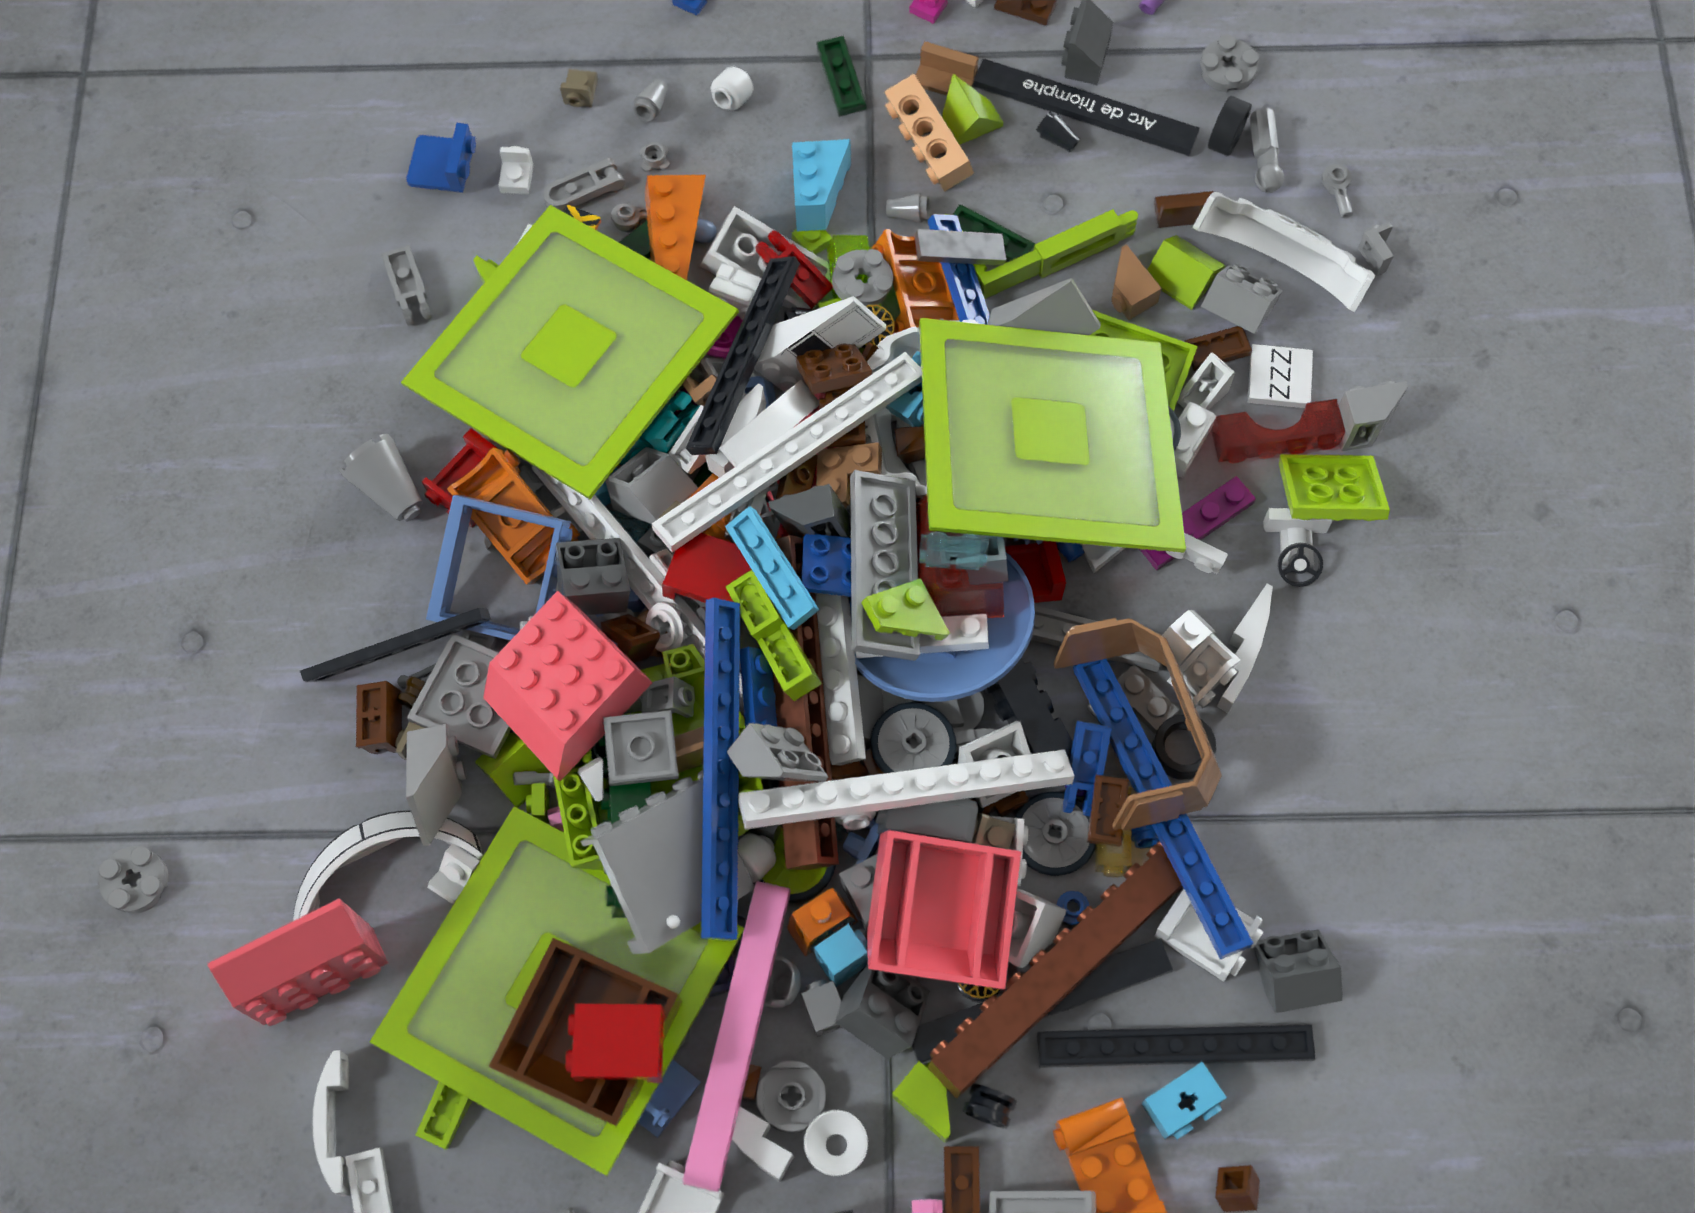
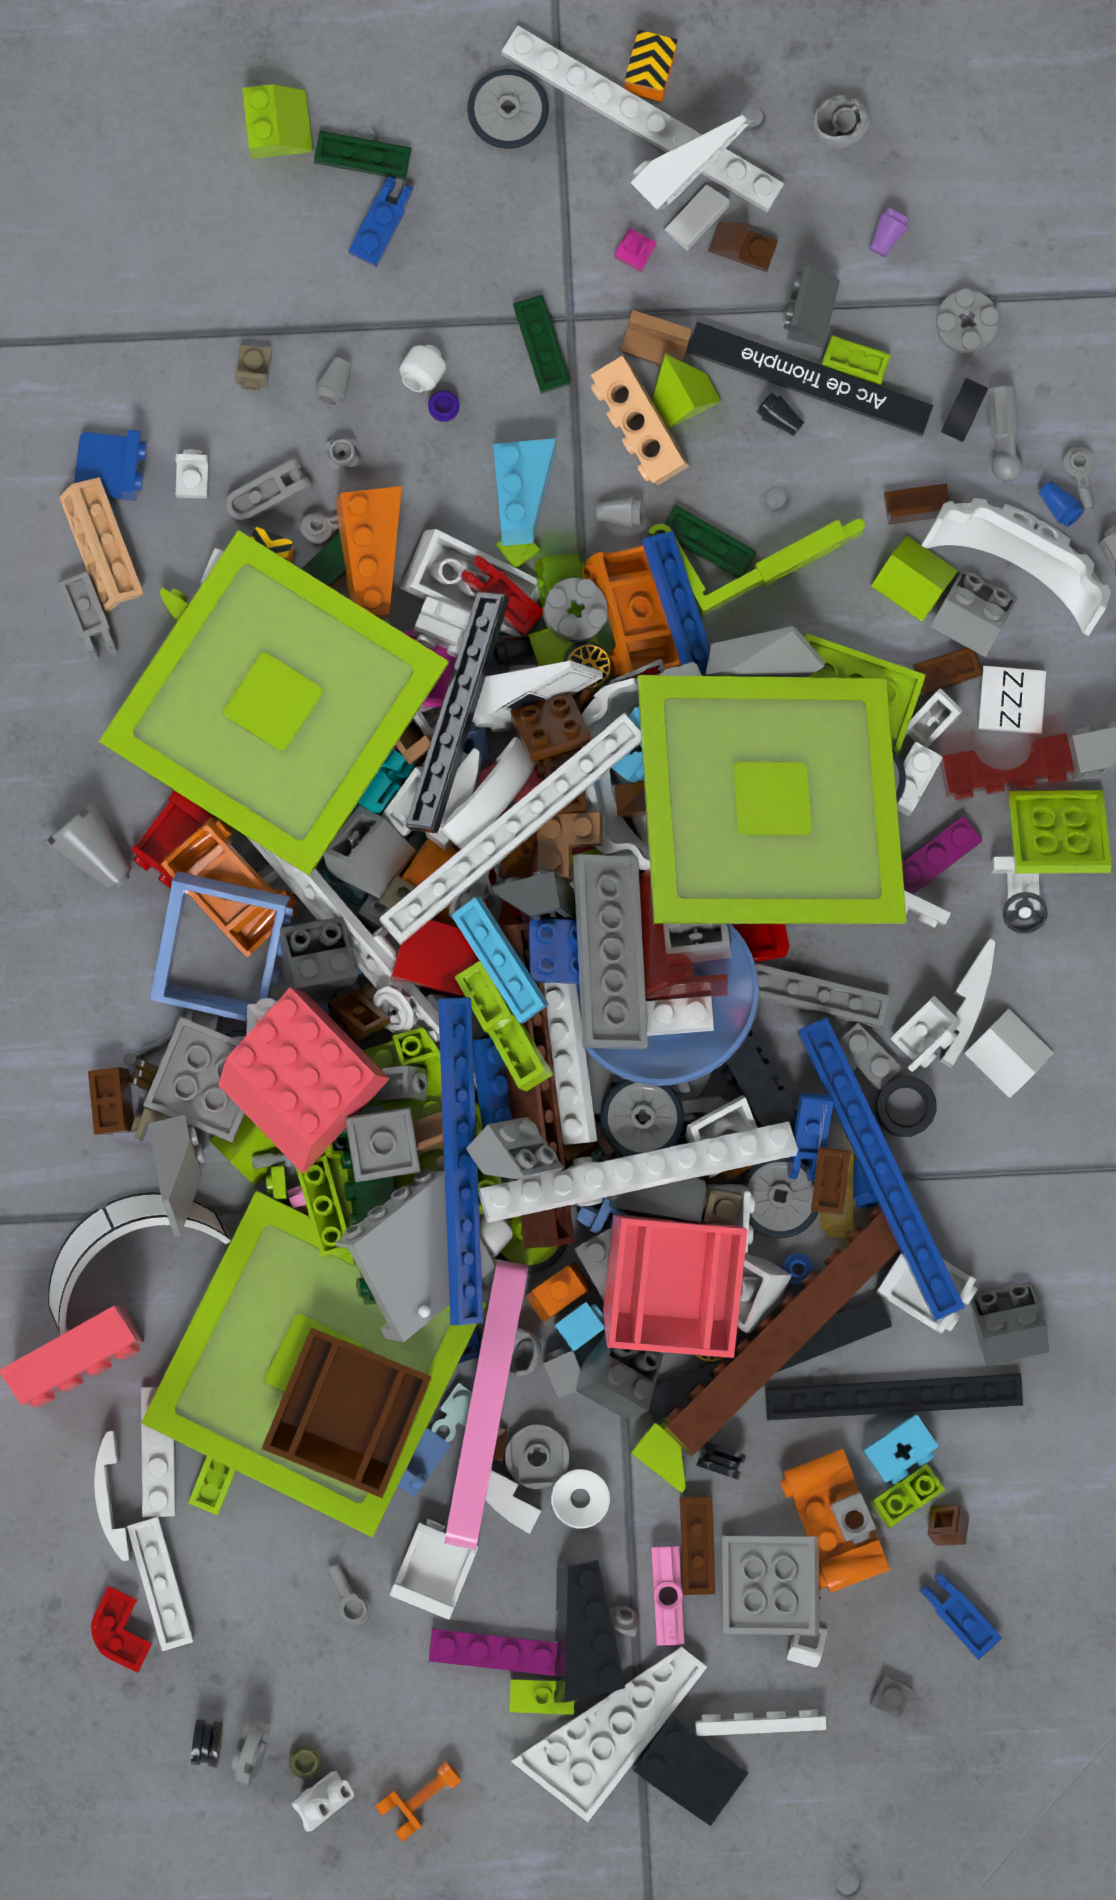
camera: 10 degrees left, 15 degrees up
(386, 1098) = (157, 1466): none -> white plate
(395, 645) = (123, 1029): black tile -> none
(424, 222) = (100, 543): none -> light nougat fence
(453, 873) = (202, 1258): white bracket -> none
(593, 777) = (337, 1170): white slope -> none
(616, 1042) = (379, 1426): red panel -> none
(705, 231) = (405, 544): sand blue hinge -> none
(705, 1042) = (457, 1410): none -> light aqua plate
(749, 121) = (443, 406): none -> dark purple plate
(906, 611) = (633, 1004): lime wing -> none
(960, 247) = (677, 575): flat silver tile -> none
(968, 549) = (691, 944): clear light blue hinge -> none
(1126, 636) = (929, 1139): medium nougat piece -> none
(1128, 90) = (856, 360): none -> lime plate
(1133, 286) = (858, 602): medium nougat slope -> none
(1137, 1157) = (842, 1507): none -> light grey brick
(1187, 634) = (909, 995): white slope -> none
(1191, 1154) = (907, 1496): none -> lime slope
(1287, 700) = (1009, 1053): none -> white slope
(1322, 210) = (1062, 504): none -> blue cone

